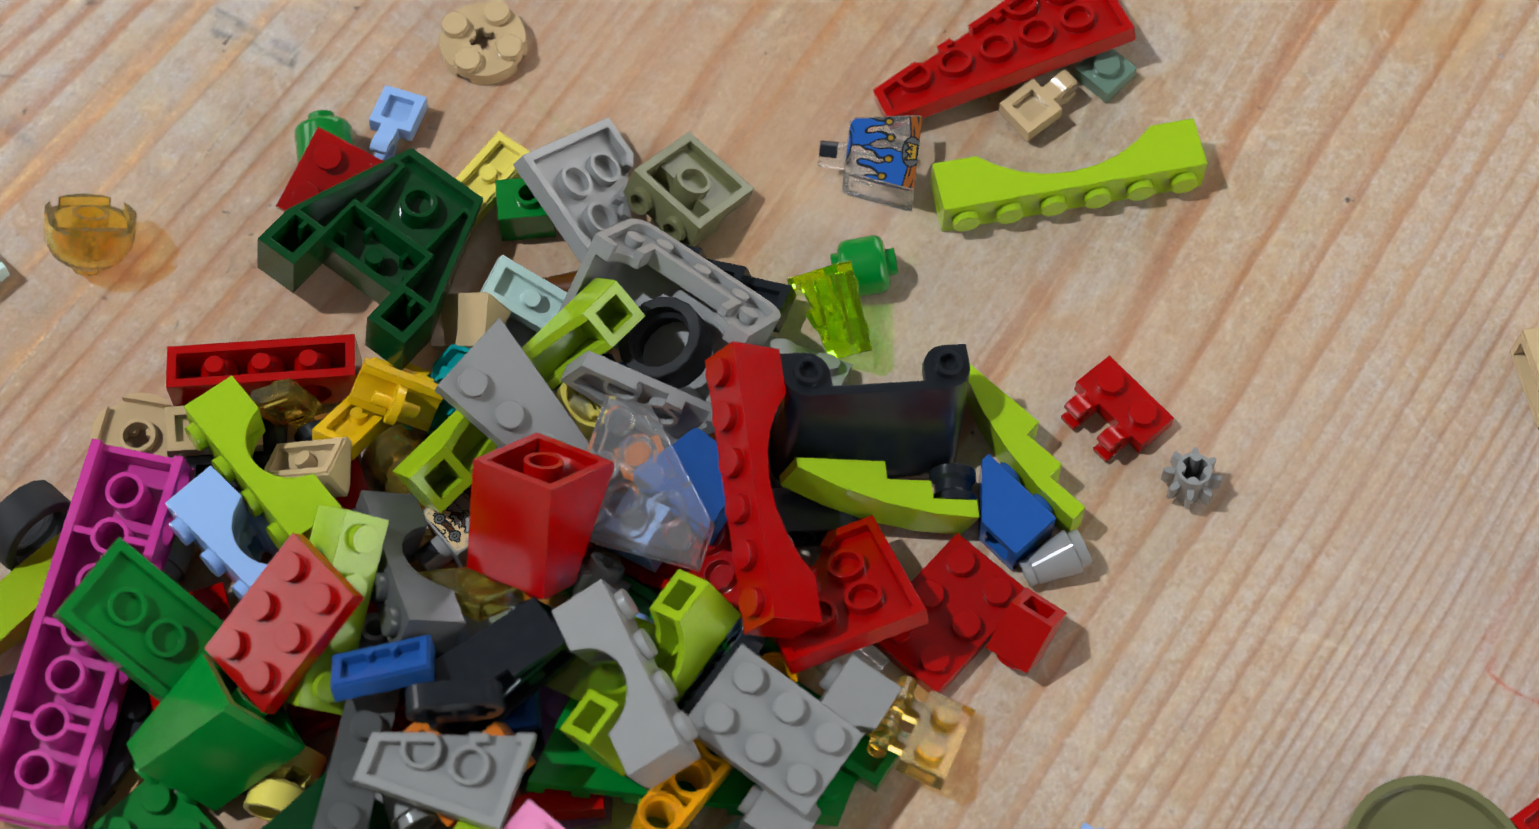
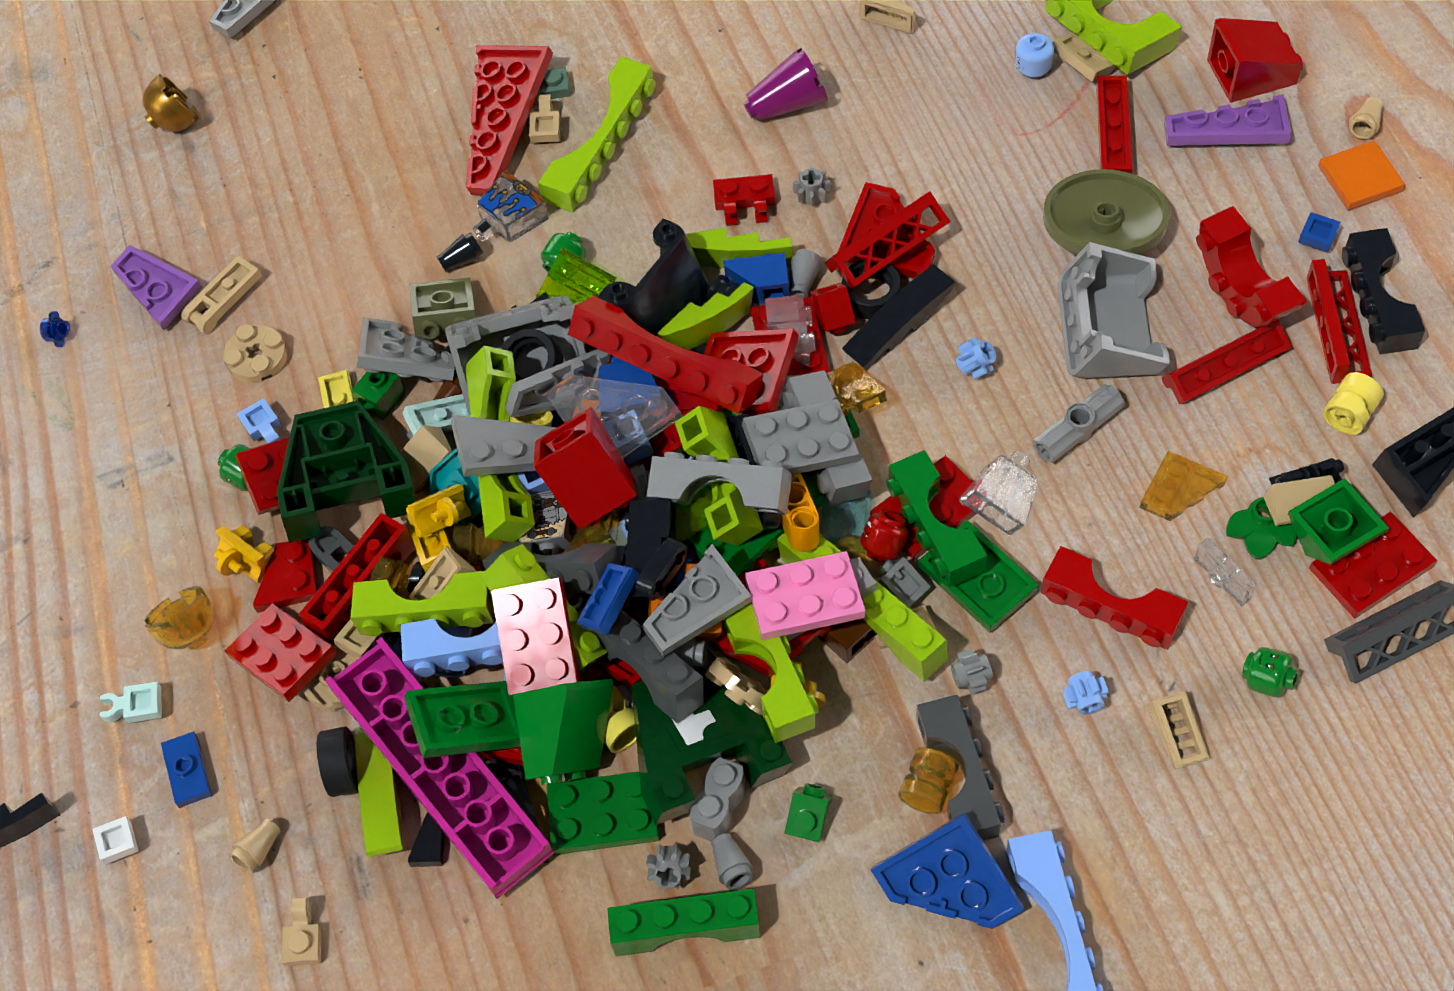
camera: 45 degrees left, 5 degrees down
(123, 363) = (281, 652): none -> plate
(223, 211) = (238, 556): none -> yellow hips
(228, 299) = (288, 577): none -> red wing
(292, 311) = (329, 546): none -> dark grey plate
(781, 152) = (460, 252): none -> black cone
(954, 595) = (790, 313): none -> clear slope
(1081, 719) = (900, 314): none -> black slope
(1106, 622) = (867, 308): none -> black tyre
(1175, 610) = (879, 233): none -> red fence
(1191, 618) = (873, 208): none -> red plate
(1310, 344) = (786, 89): none -> magenta cone

